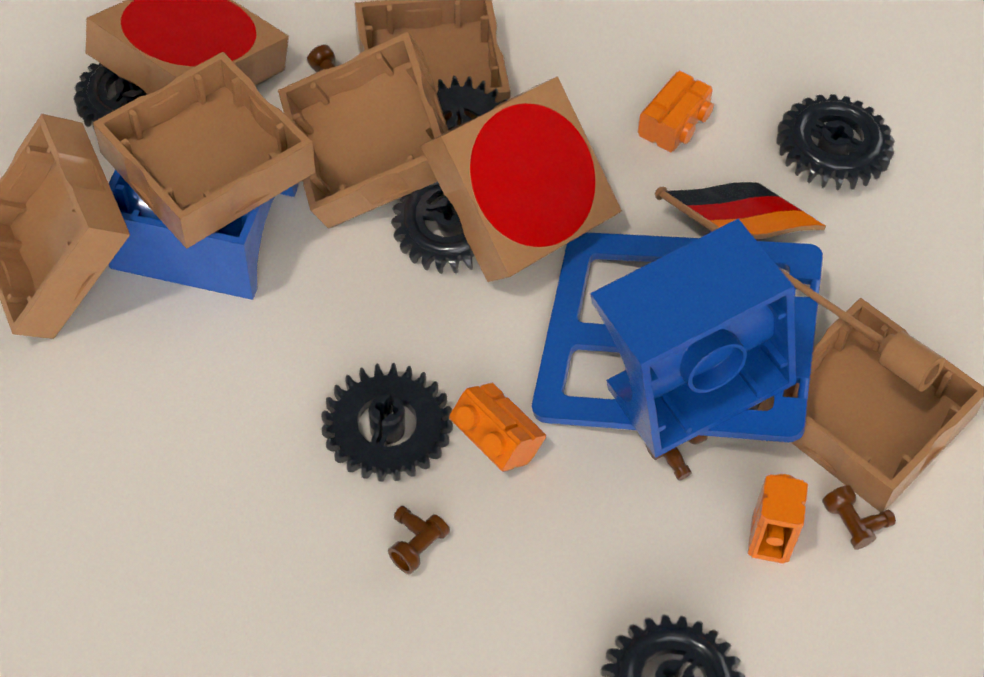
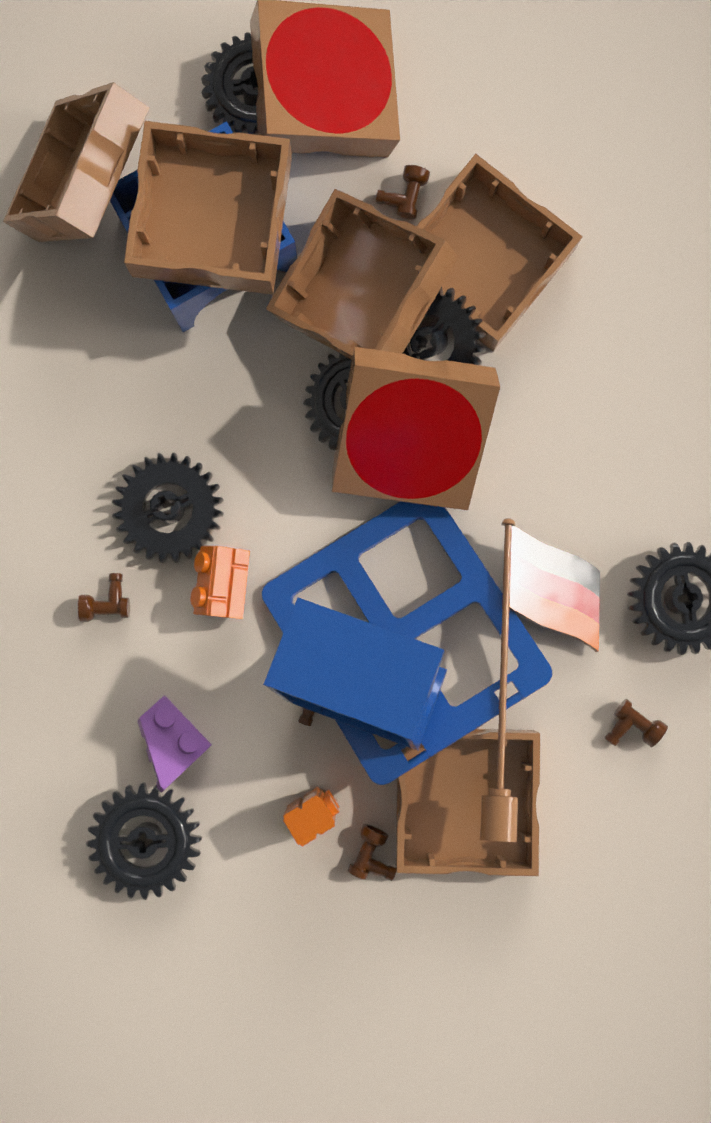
camera: 45 degrees right, 30 degrees up
(597, 586) = (170, 741): none -> medium lavender wing
(676, 111) = (606, 463): orange brick -> none
(928, 241) = (628, 716): none -> reddish brown piece

